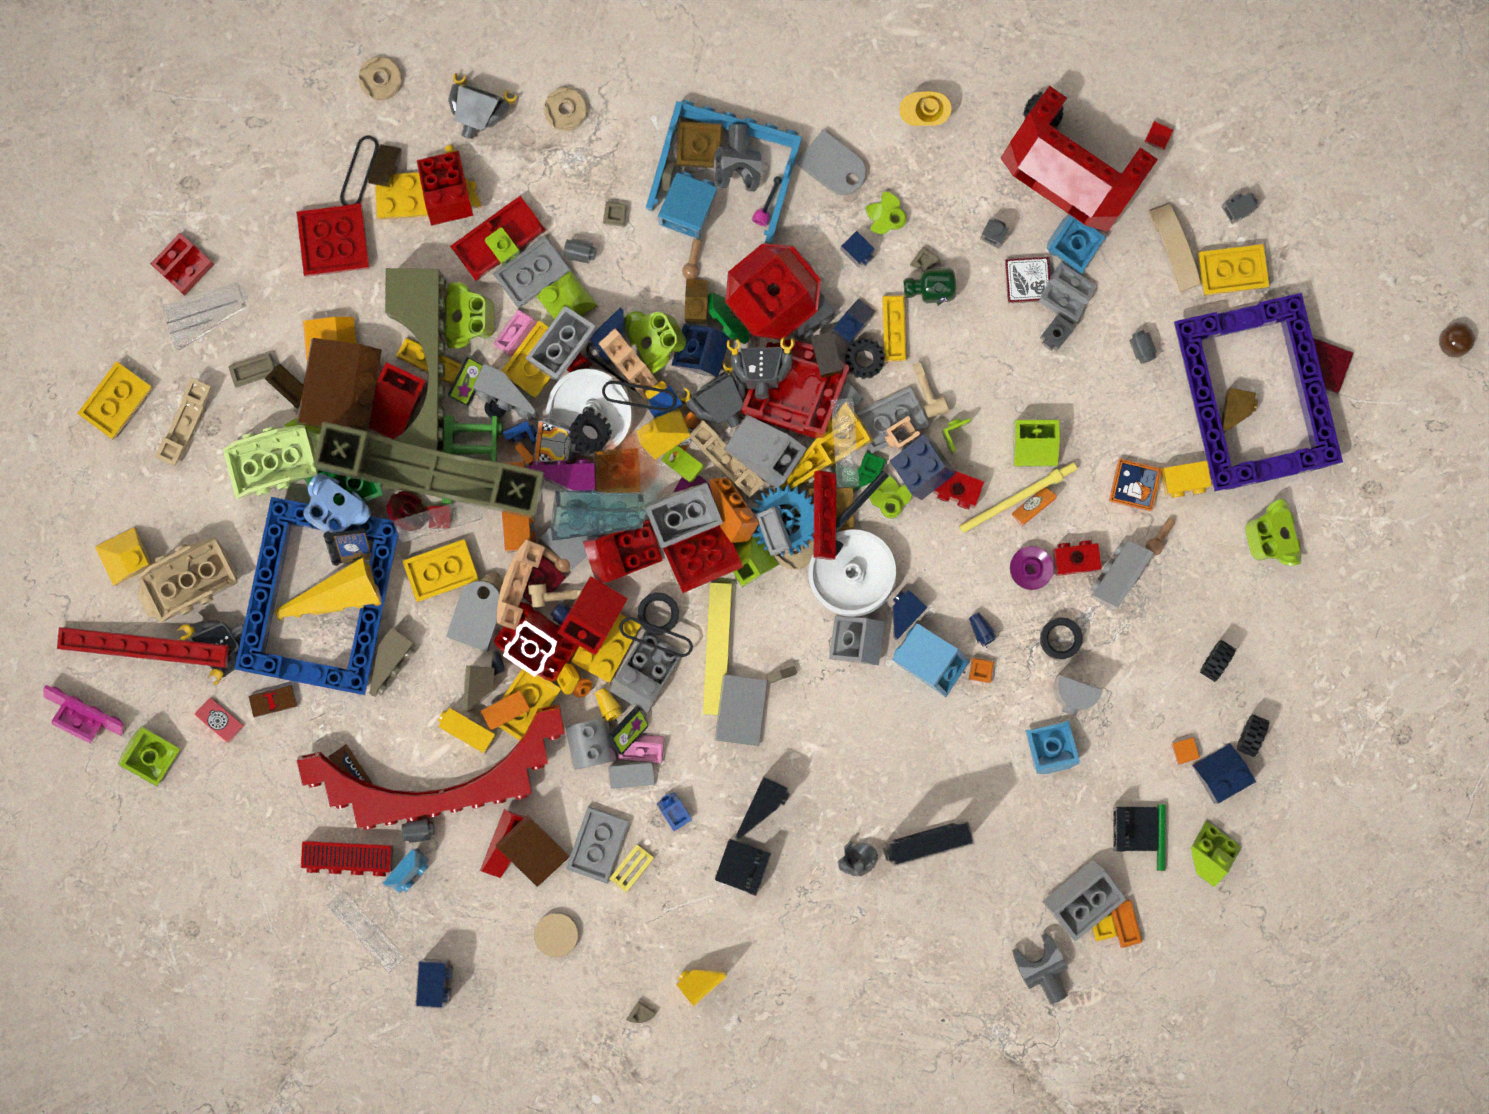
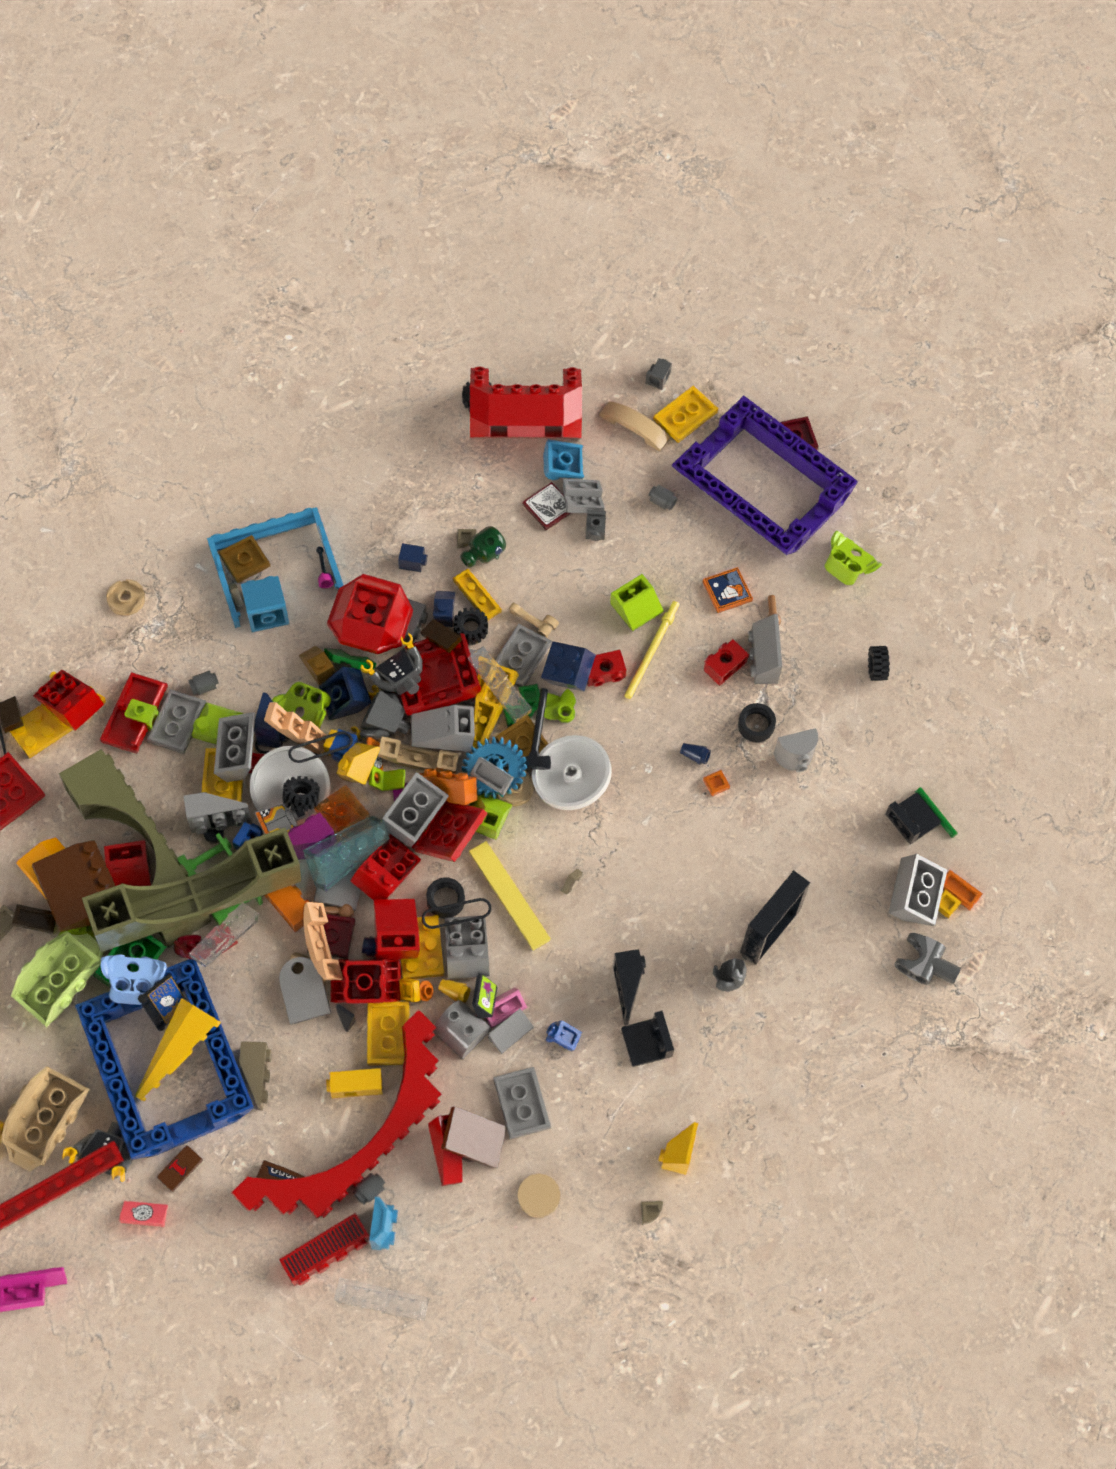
camera: 35 degrees left, 20 degrees down
(148, 755) = (101, 1280): lime slope -> none
(413, 354) = (124, 833): yellow tile -> none
(433, 983) = (466, 1299): dark blue brick -> none
(440, 570) = (251, 977): yellow plate -> none
(461, 298) = (141, 769): lime piece -> none
(462, 388) = (178, 828): slope -> none
(476, 107) = (56, 632): torso -> none
(477, 686) = (341, 1040): dark tan slope -> none
(505, 710) = (376, 1045): orange tile -> none
(515, 333) = (192, 771): bright pink slope -> none
(540, 595) = (345, 942): tan brick -> none
(615, 214) = (213, 644): dark tan tile -> none
(620, 882) = (562, 1084): light yellow tile -> none
(691, 270) = (297, 646): medium nougat bar -> none
(739, 159) = (279, 550): dark grey connector -> none
(740, 710) = (560, 926): light grey tile -> none
(824, 515) = (521, 743): red tile -> none
(831, 163) = (352, 516): light grey tile -> none
(856, 640) = (609, 819): light grey slope -> none
(883, 212) = (413, 526): lime plate -> none
(901, 434) = (535, 656): light nougat window -> none
(905, 612) = (630, 776): dark blue slope -> none
(925, 108) = (393, 438): yellow piece -> none
(931, 659) = (674, 796): dark azure slope -> none
(953, 425) = (568, 631): lime bracket -> none
(994, 233) = (501, 484): dark grey brick -> none
(1031, 556) = (698, 680): magenta dish -> none
(1033, 506) = (668, 647): orange slope -> none
(1052, 748) = (811, 800): dark azure slope -> none
(1158, 135) = (568, 361): red tile -> none
(1185, 751) = (905, 742): orange tile -> none
(1186, 478) = (759, 562): yellow brick -> none
(1213, 854) = (983, 797): lime slope -> none
(1223, 774) = (944, 738): dark blue slope -> none
(1237, 407) = (758, 493): pearl gold slope -> none
(1253, 735) = (943, 696): black tyre -> none
(1456, 340) = (869, 367): reddish brown hair -> none

